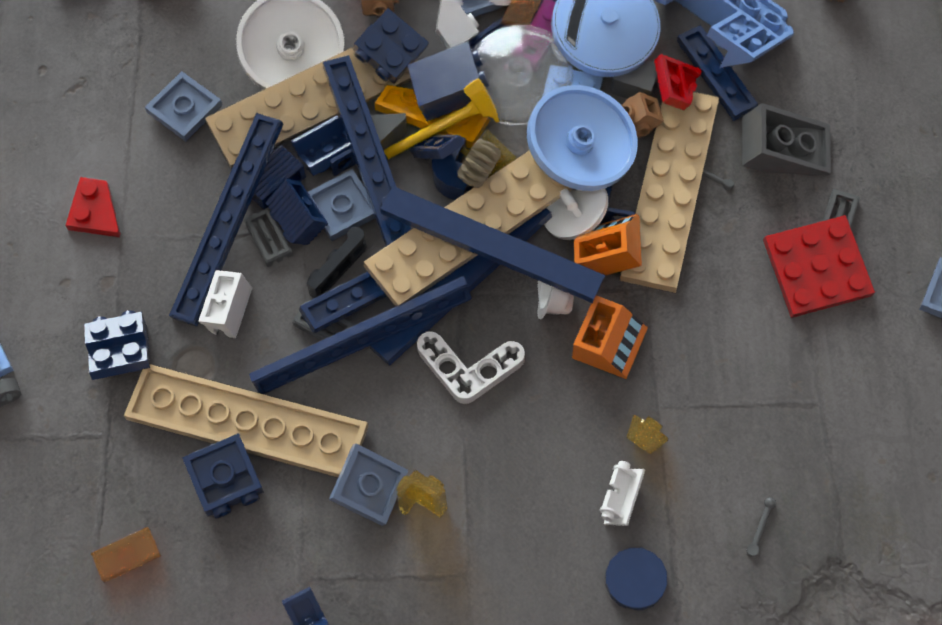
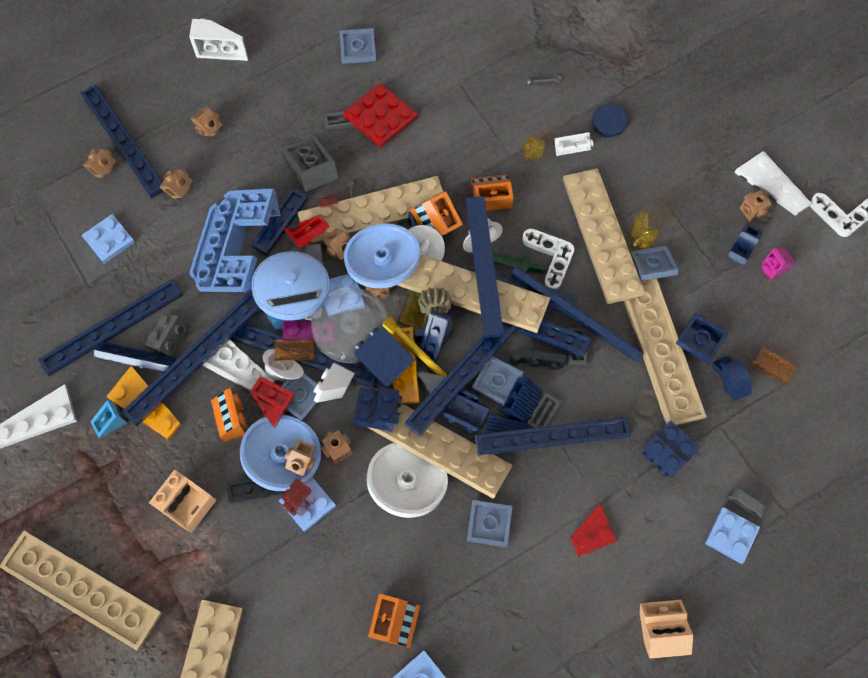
camera: 125 degrees left, 5 degrees up
(150, 480) = (735, 377): none -> dark blue brick
(225, 303) = (604, 405): white hinge -> none
(456, 446) = (603, 236): none -> tan plate
(480, 324) = (523, 264): none -> dark green sword
(713, 136) = (328, 201): none -> clear red tile
(916, 48) = (206, 122): none -> medium nougat brick

